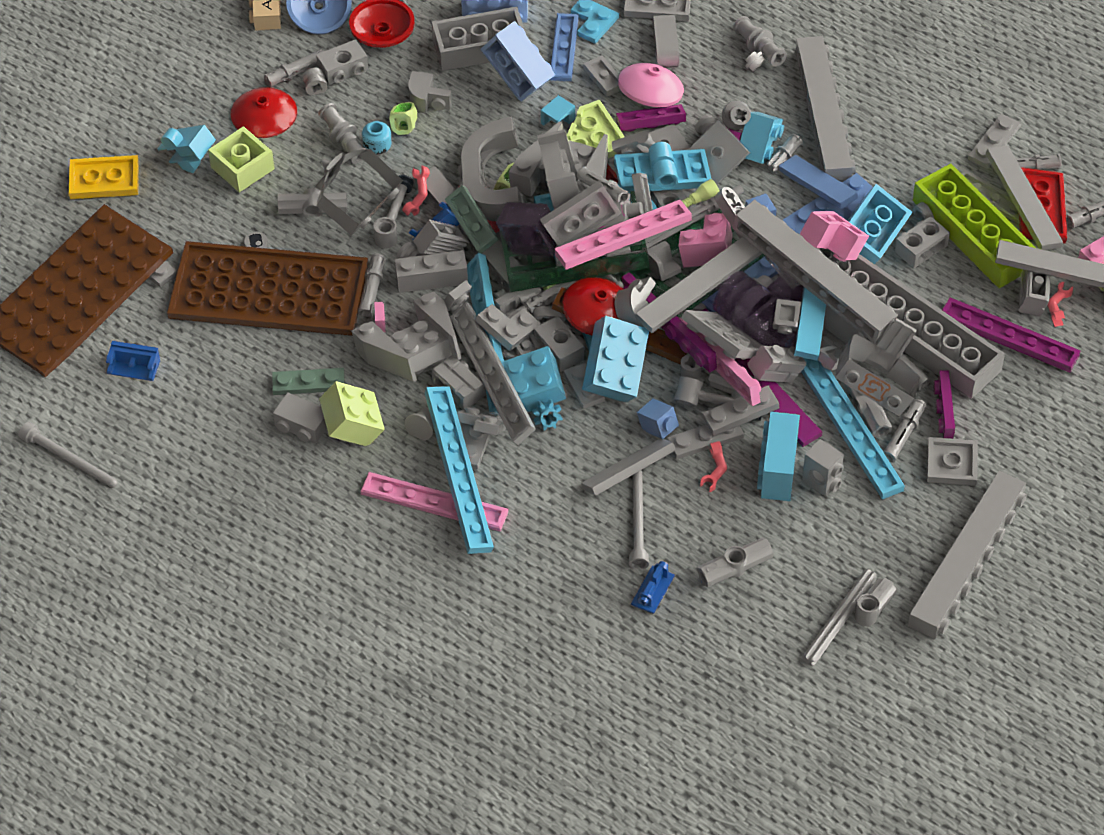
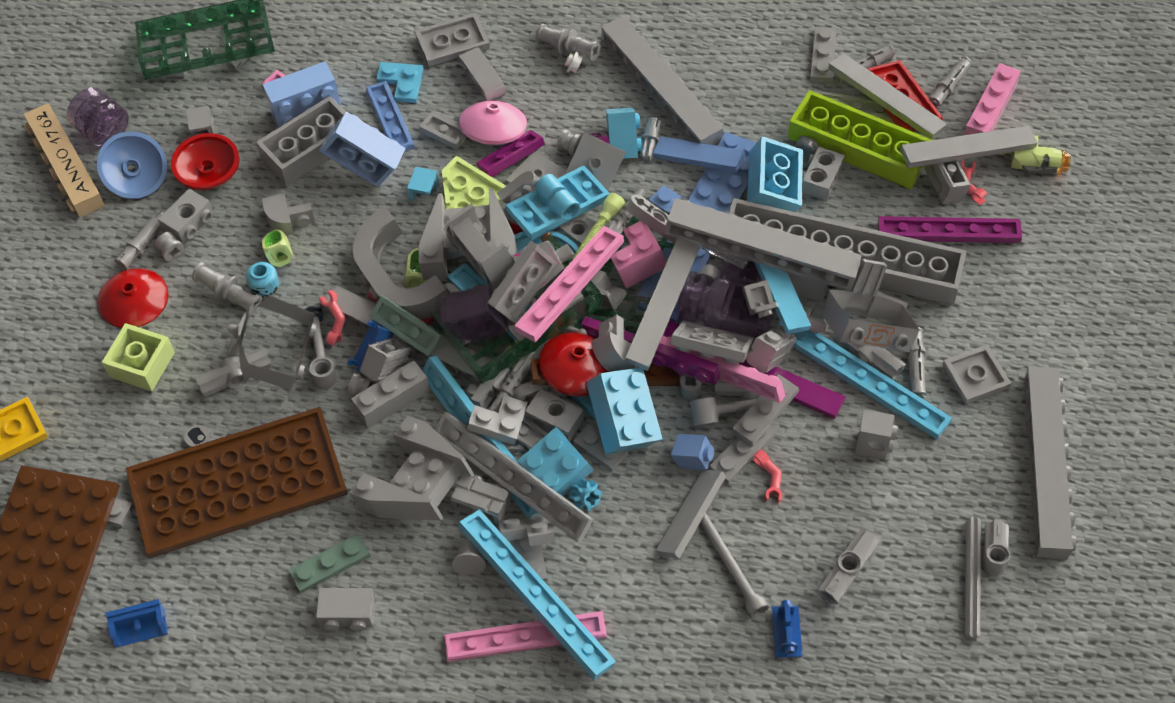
camera: 25 degrees left, 5 degrees up
(190, 145) = (77, 365): medium azure piece -> none
(351, 414) = (397, 582): yellowish green brick -> none
(373, 278) = (336, 425): light grey pin -> none
(380, 315) = (365, 463): bright pink tile -> none
(457, 297) = (435, 410): light grey plate -> none
(616, 193) = (519, 241): light grey pin -> none
(642, 191) = (555, 230): light grey tile -> none
(737, 109) = (593, 120): light grey piece -> none
(778, 456) = (829, 441): medium azure brick -> none
(834, 233) = (759, 200): bright pink brick -> none
(944, 404) = (938, 323): magenta plate -> none

